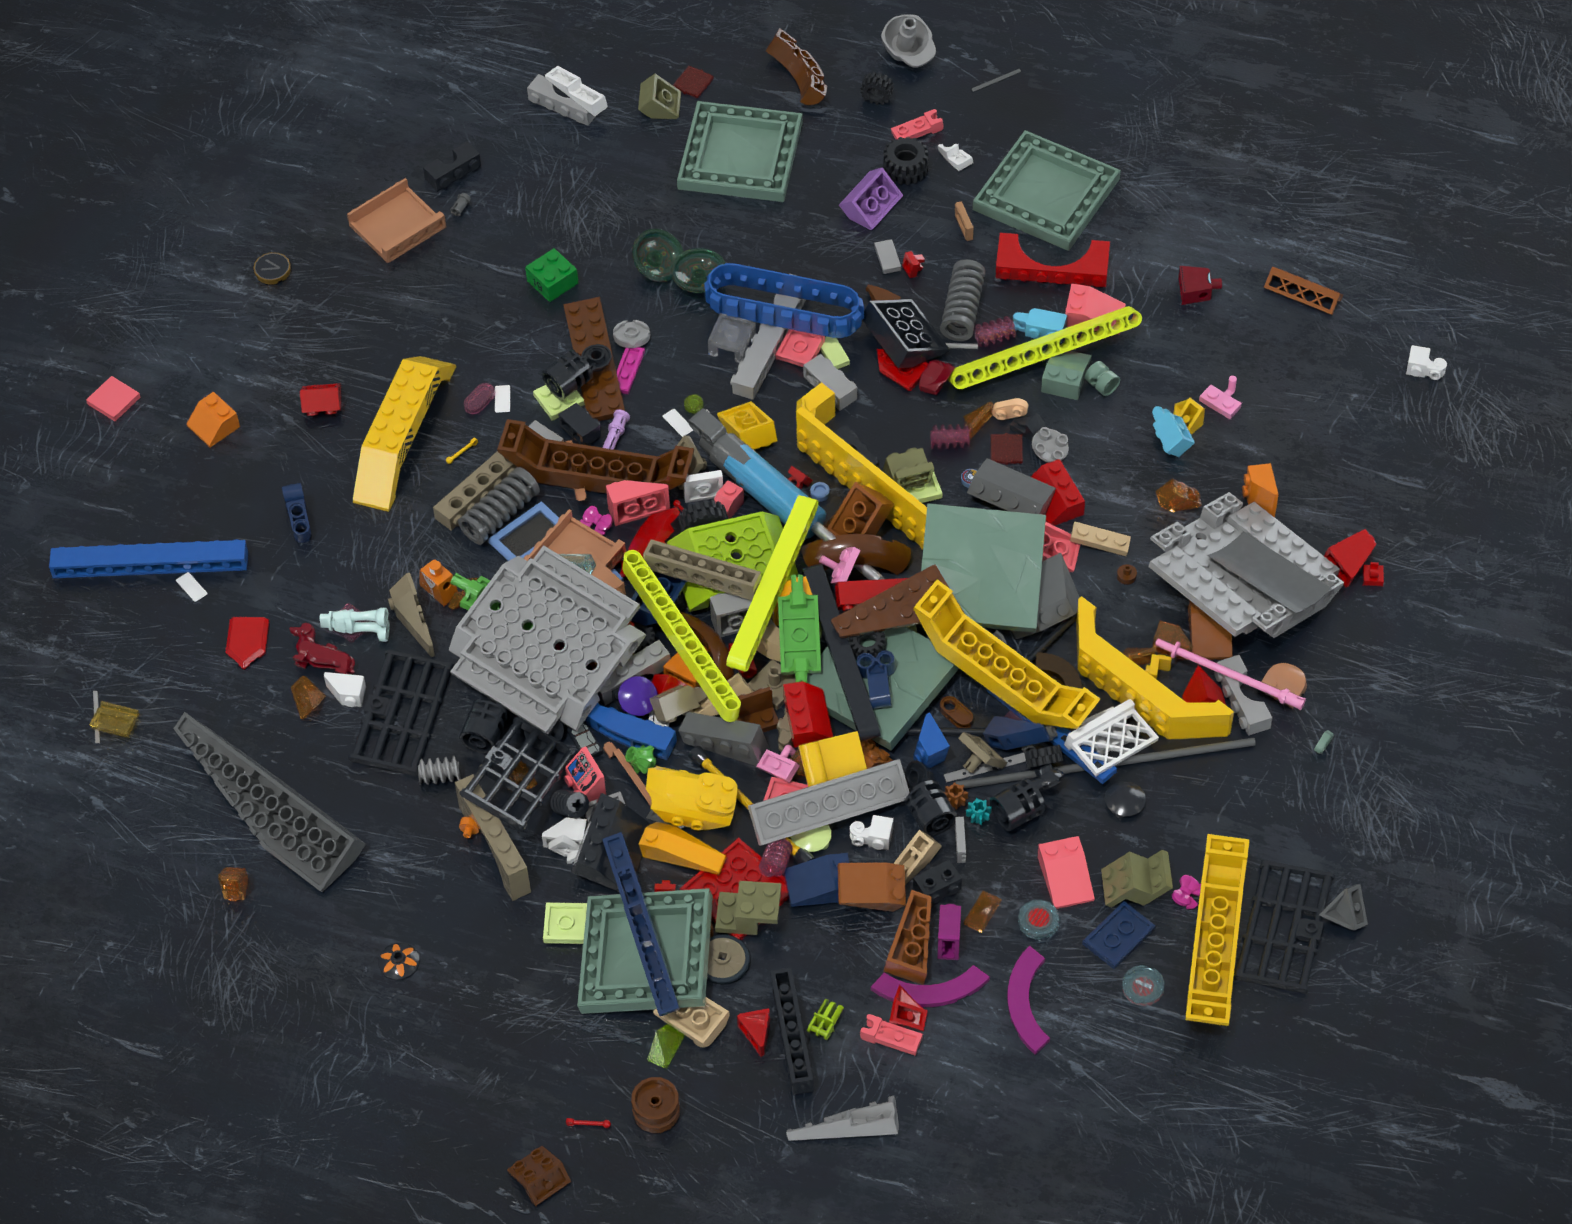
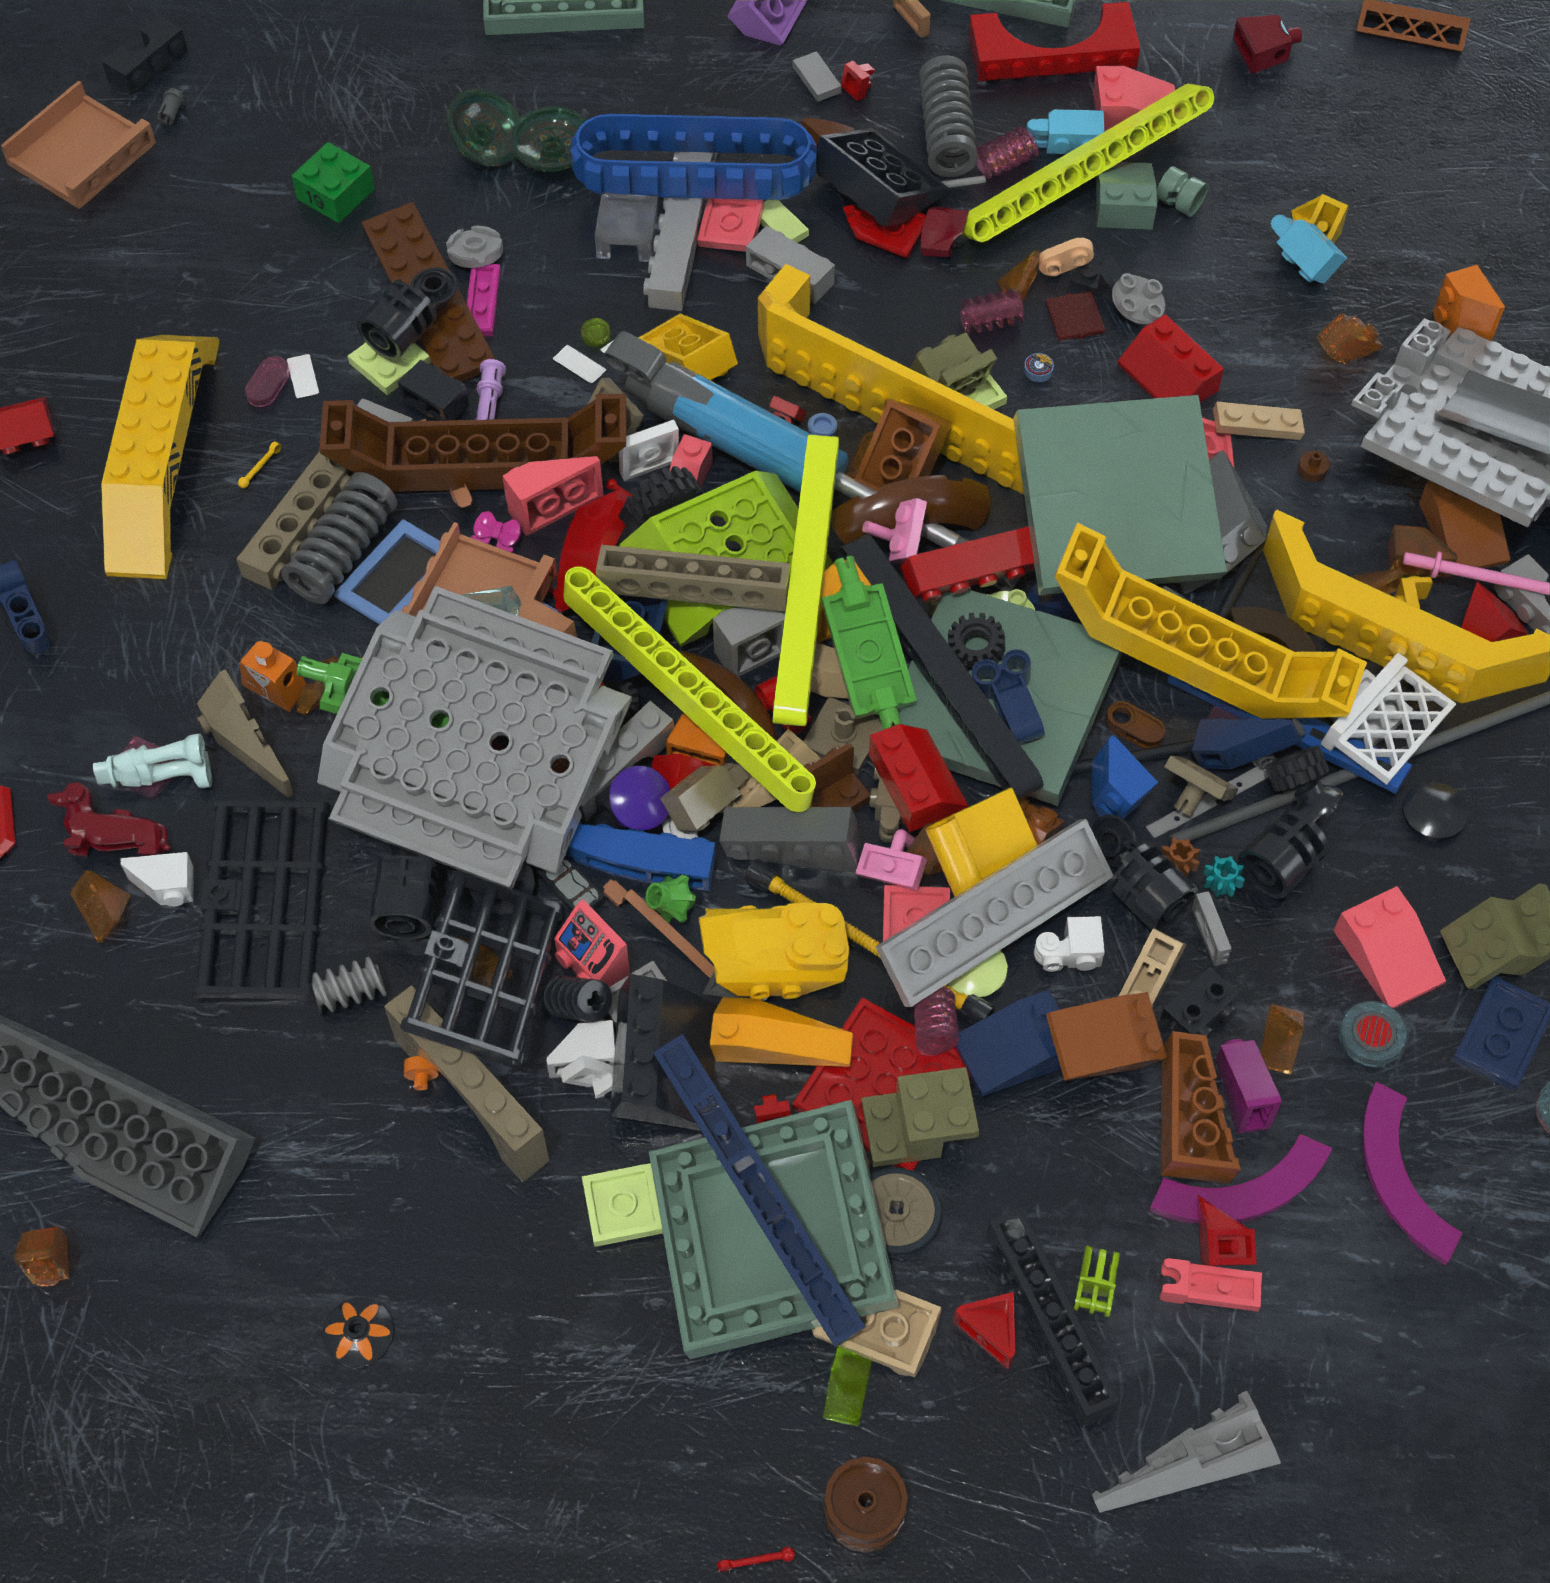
camera: 15 degrees left, 5 degrees up
(889, 608) = (1006, 581): reddish brown wing -> none
(1010, 489) = (1108, 370): dark grey slope -> none
(1222, 401) = (1357, 193): bright pink plate -> none

